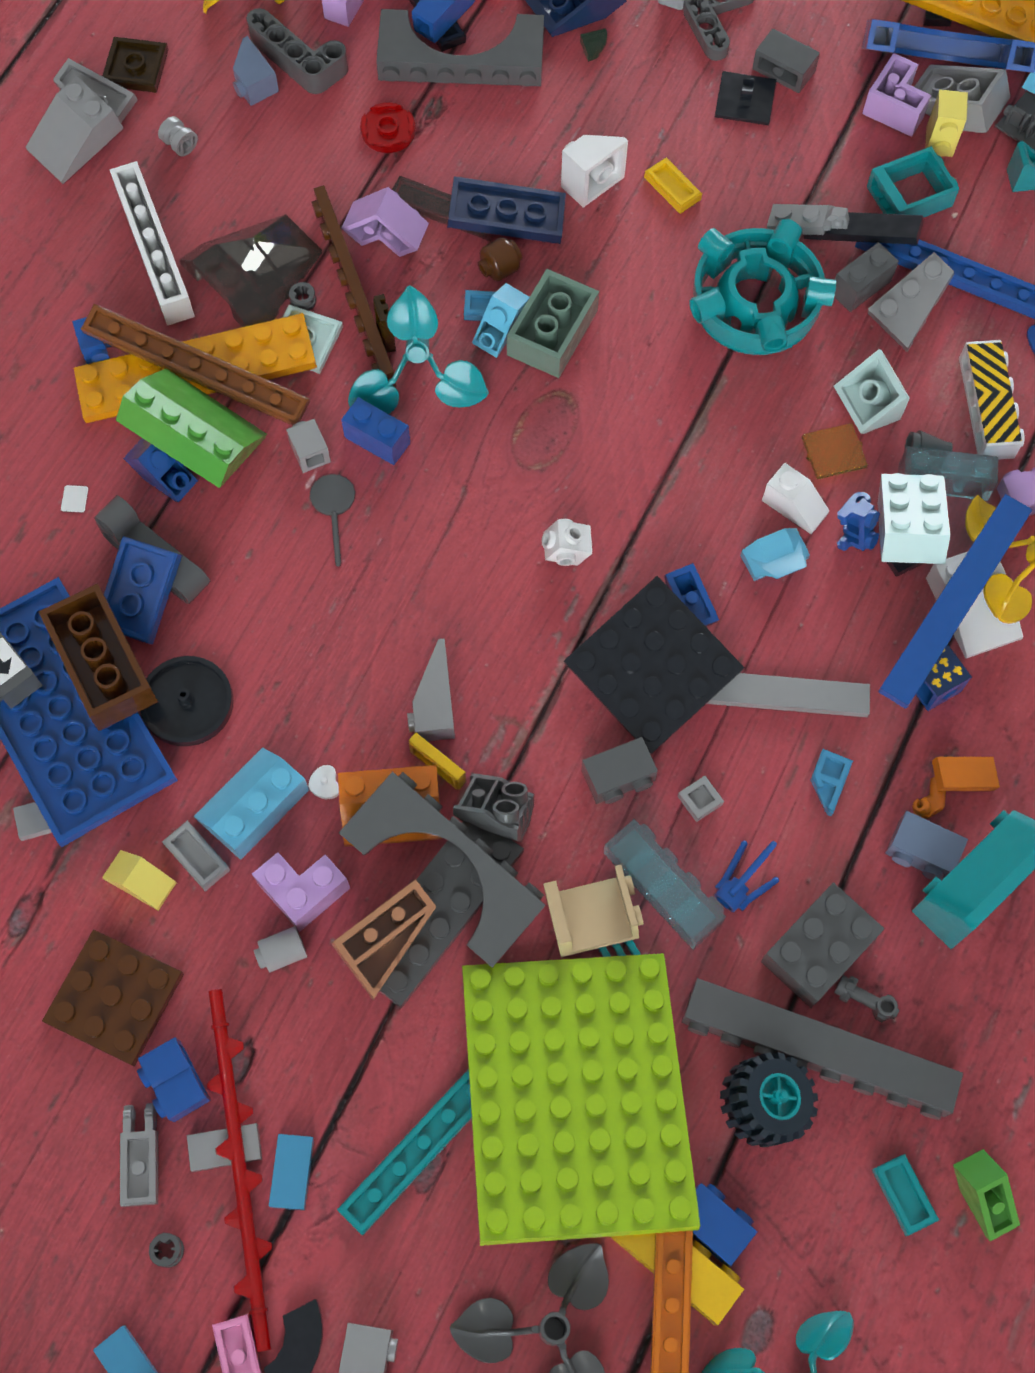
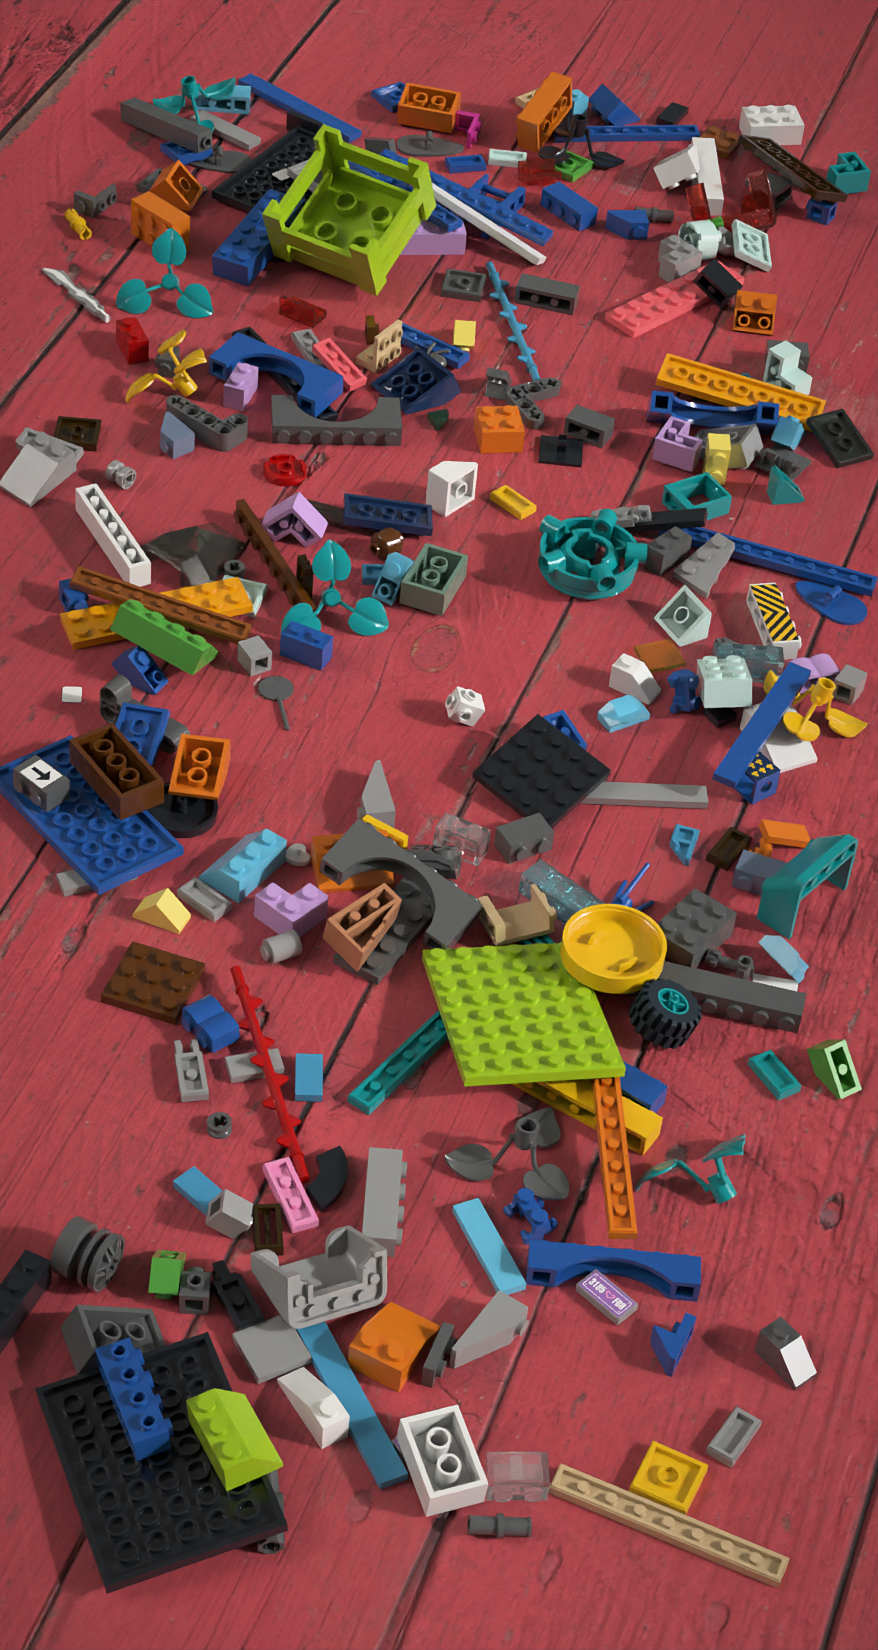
camera: 10 degrees left, 25 degrees down
(211, 646) = (200, 767): none -> orange slope
(537, 770) = (470, 838): none -> clear brick
(668, 66) = (499, 429): none -> orange brick
(700, 798) = (588, 854): light grey plate -> none
(710, 997) = (613, 948): none -> yellow piece
(888, 791) = (728, 849): none -> dark brown tile
(924, 1029) = (775, 981): none -> white sticker
(943, 994) = (785, 956): none -> medium azure slope

